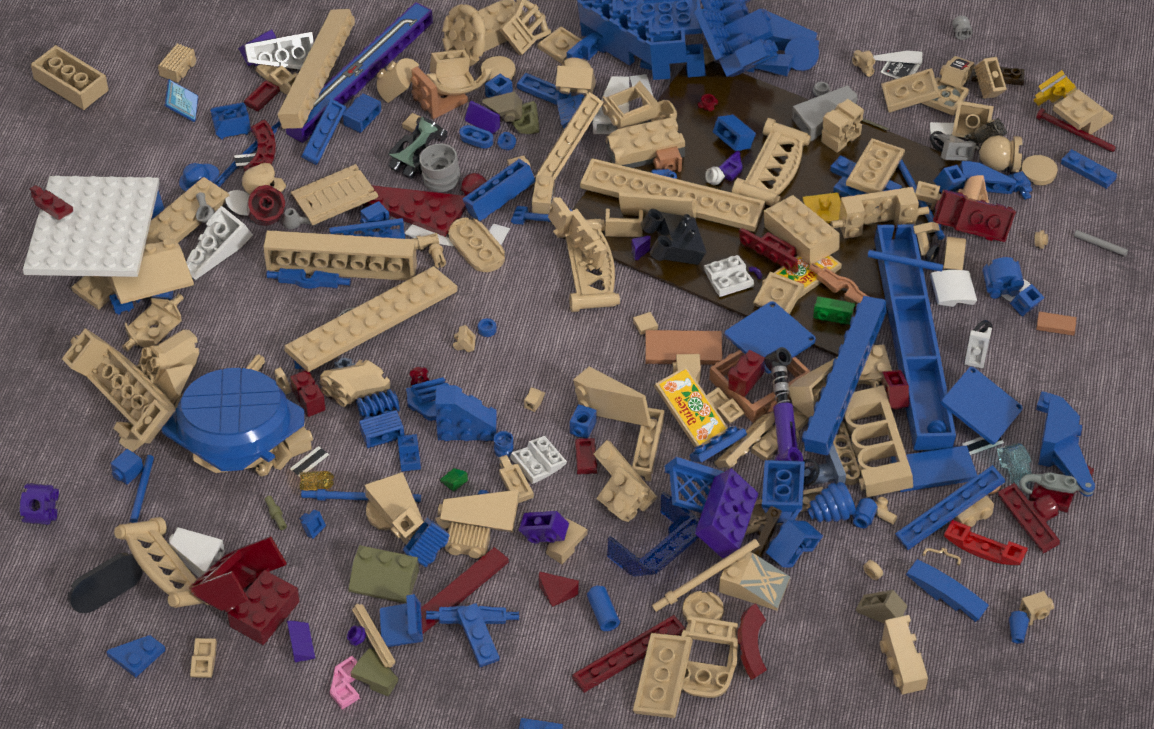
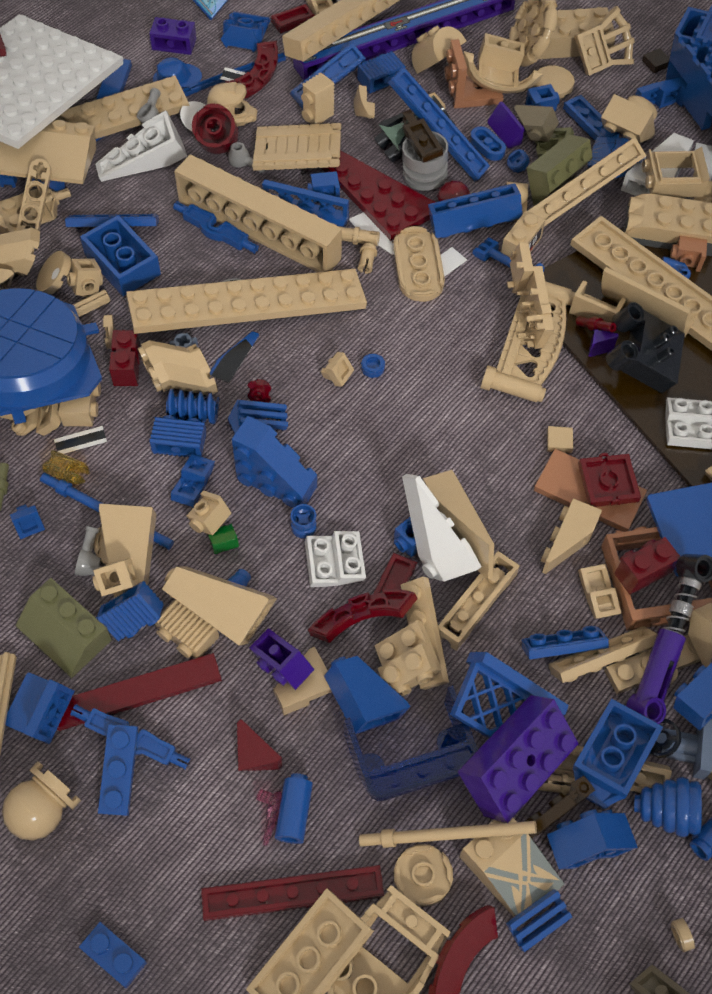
camera: 25 degrees right, 10 degrees up
(164, 313) = (35, 203): none -> tan beam
(176, 146) = (173, 35): none -> dark purple brick
(213, 355) = (52, 272): none -> tan tile
(228, 303) = (95, 220): none -> blue tile
(239, 350) = (84, 277): none -> tan brick
(255, 325) = (121, 255): none -> blue brick
(330, 153) = (318, 99): none -> tan brick
(362, 144) = (361, 106): none -> tan slope
(370, 530) = (87, 560): none -> light grey bar
(384, 359) = (230, 362): none -> black sticker
(432, 151) = (421, 137): none -> dark brown hinge
(436, 465) = (208, 513): none -> tan brick
(438, 135) = (438, 122): none -> blue tile
(442, 670) = (36, 805): none -> tan tile
(515, 479) = (289, 575): tan plate -> none
(533, 399) = (374, 478): tan piece -> none
(542, 134) = (558, 166): none -> olive slope
(558, 44) = (634, 77): tan tile -> none
(567, 22) = (656, 60): none -> dark brown tile
(575, 478) = (361, 607): none -> dark red tile
(587, 611) = (272, 811): none -> clear pink bar
(606, 417) = (437, 544): none -> white wedge
(607, 522) = (364, 694): none -> blue slope
(629, 235) = (595, 323): none -> dark red bar
(691, 407) = (555, 578): tile -> none
(693, 333) = (609, 480): none -> dark red plate
(793, 589) = (544, 930): none -> blue tile

